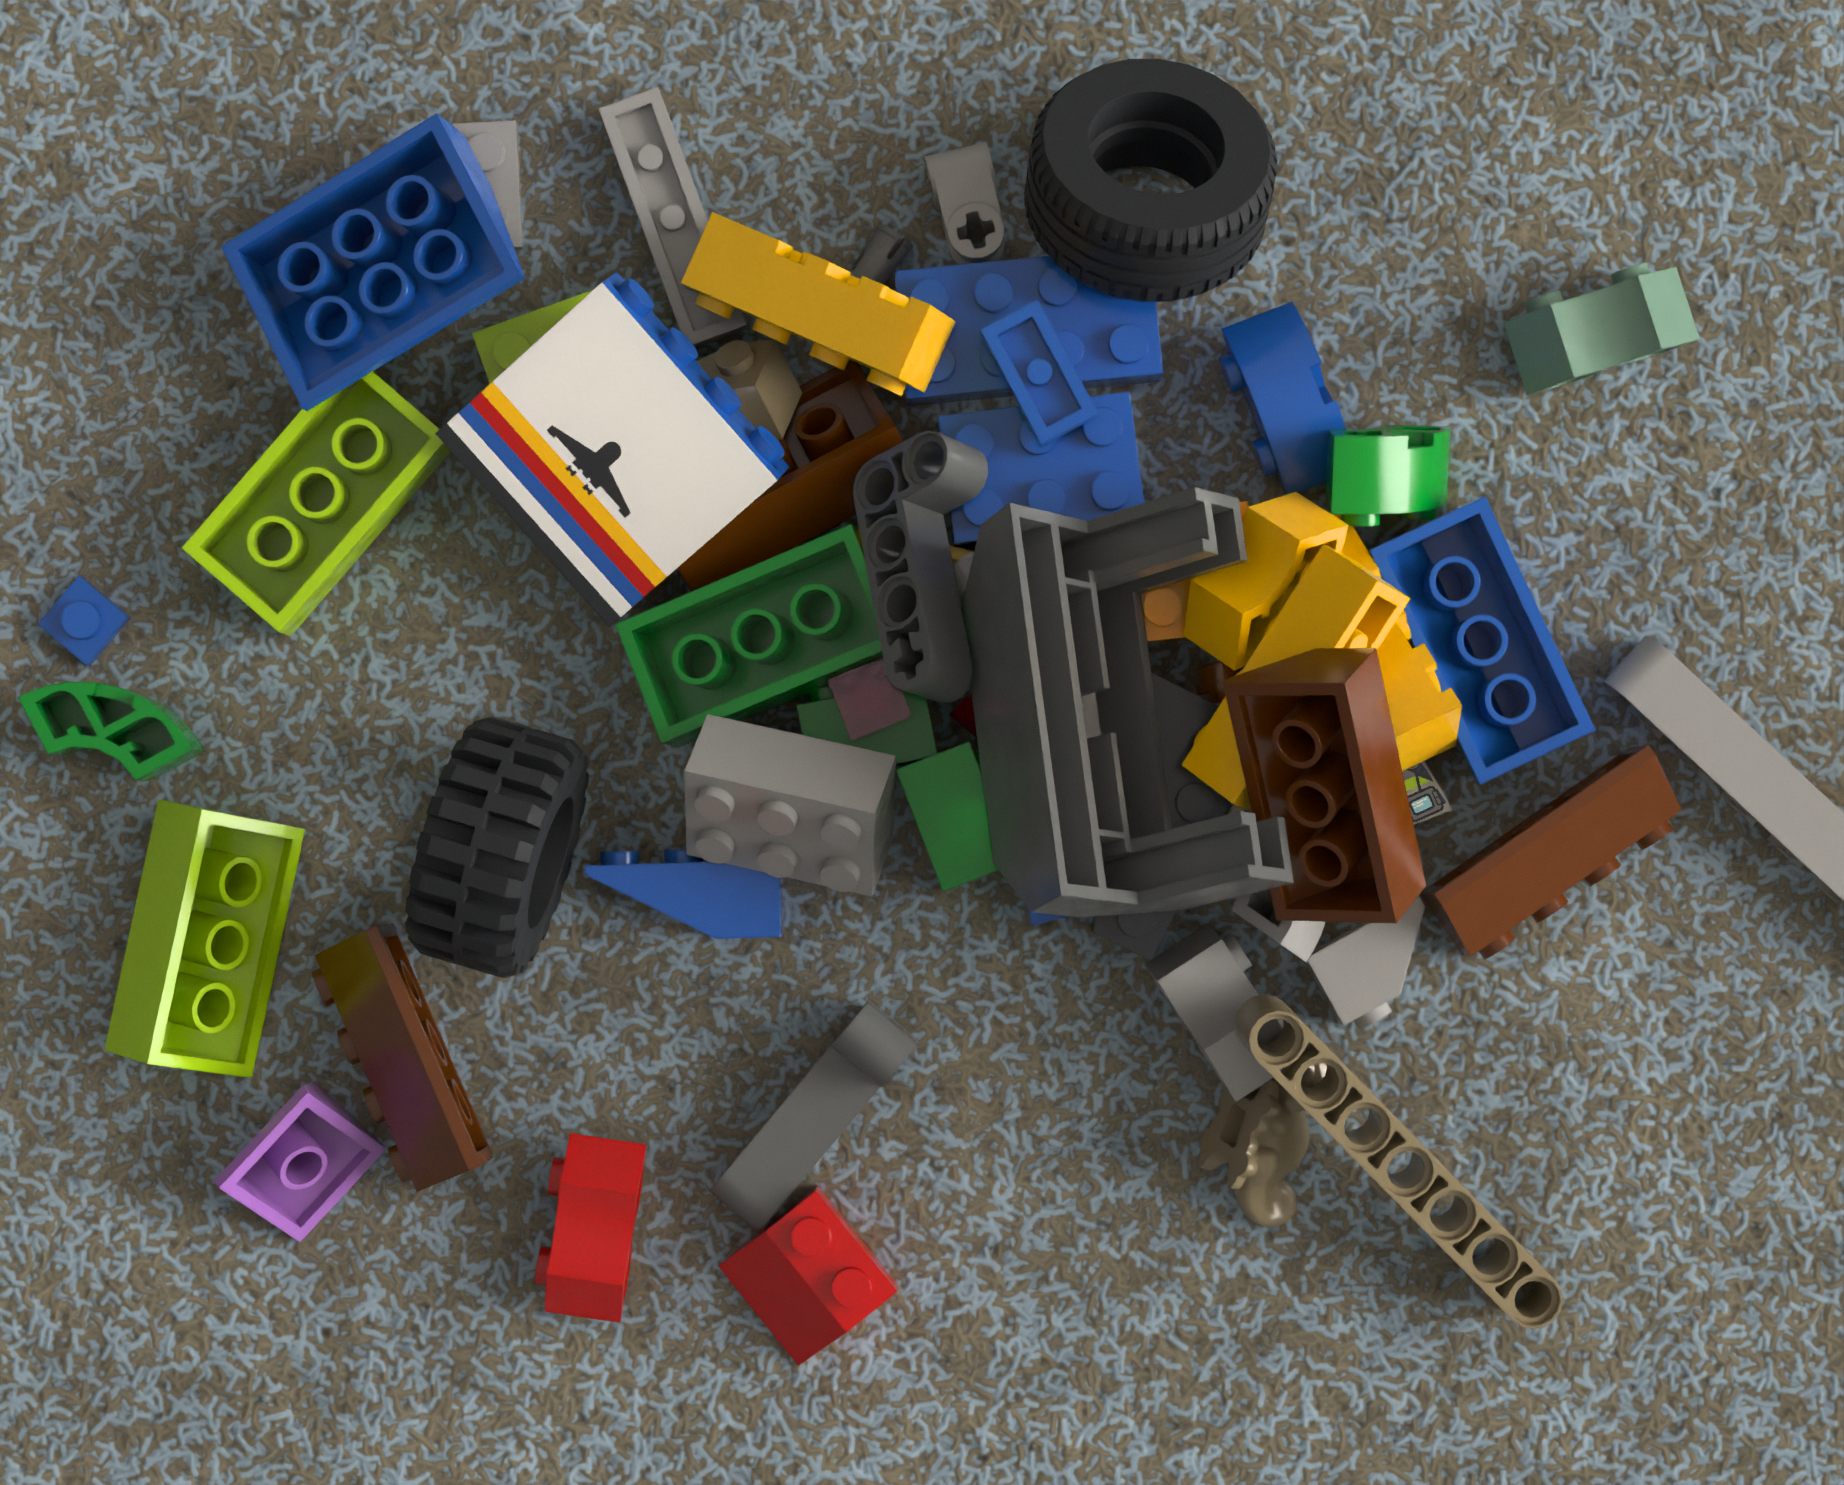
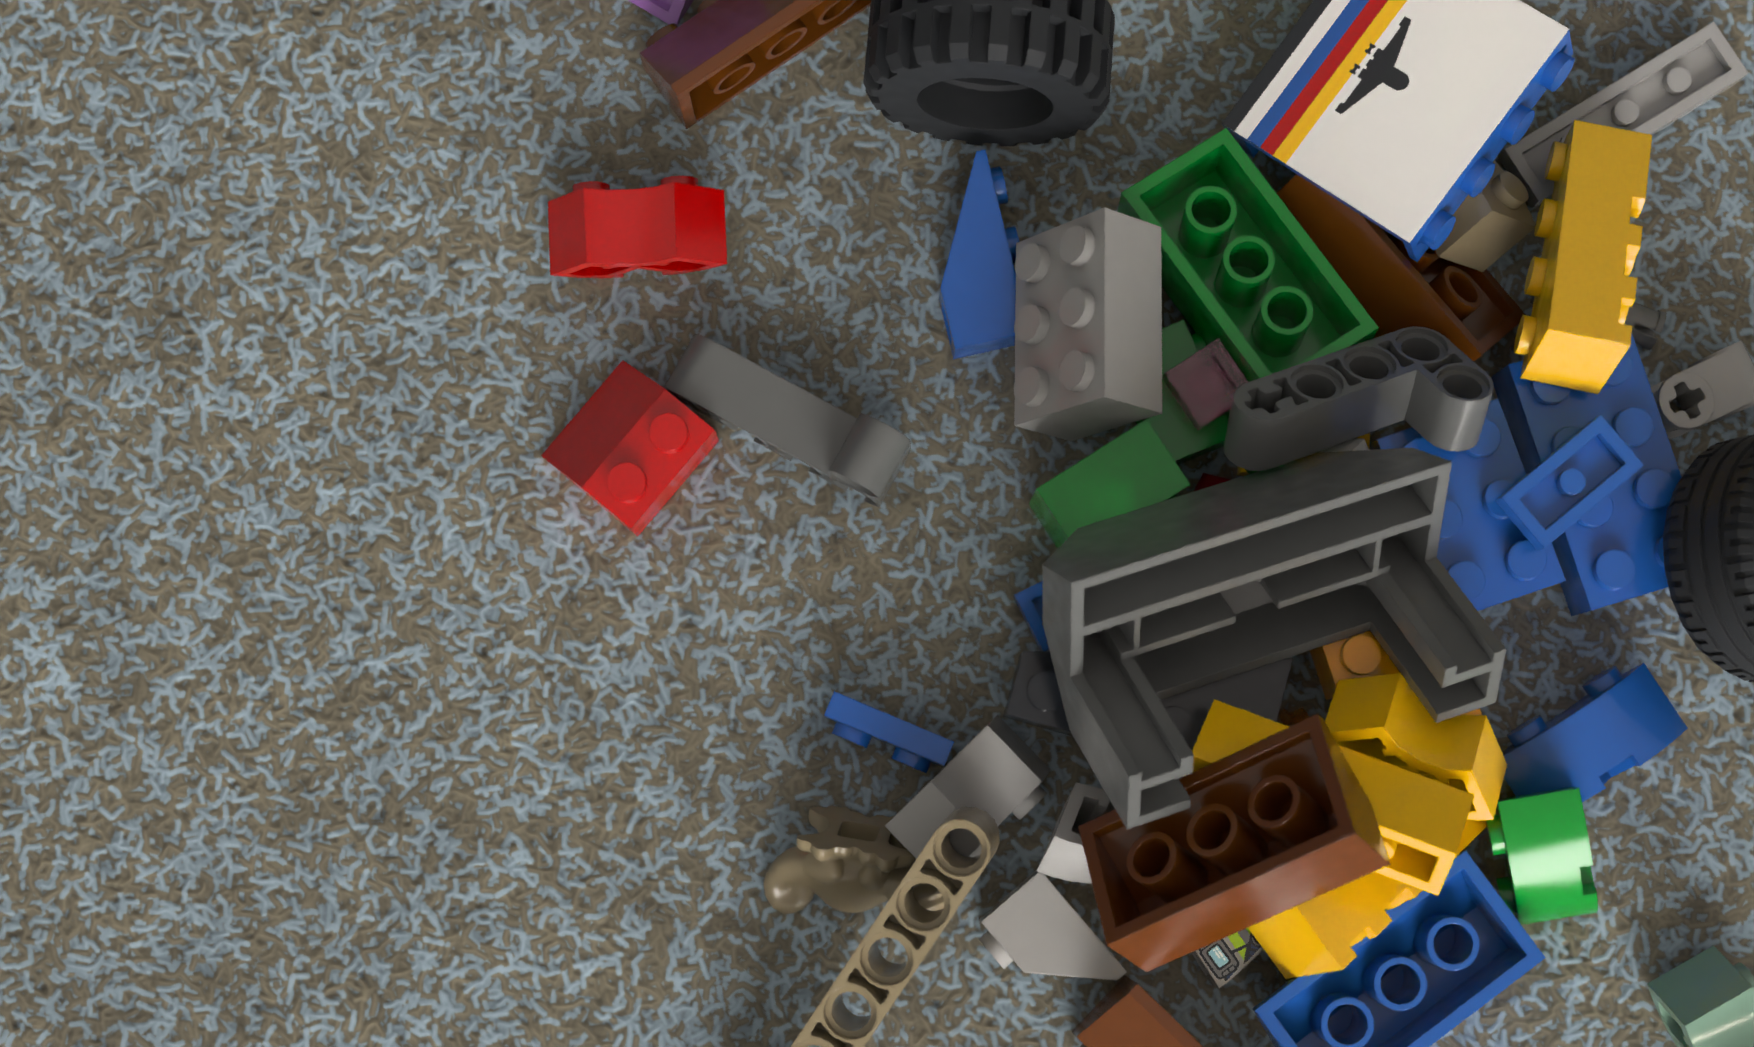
camera: 75 degrees right, 5 degrees down
(1158, 1055) = (912, 744): none -> blue plate

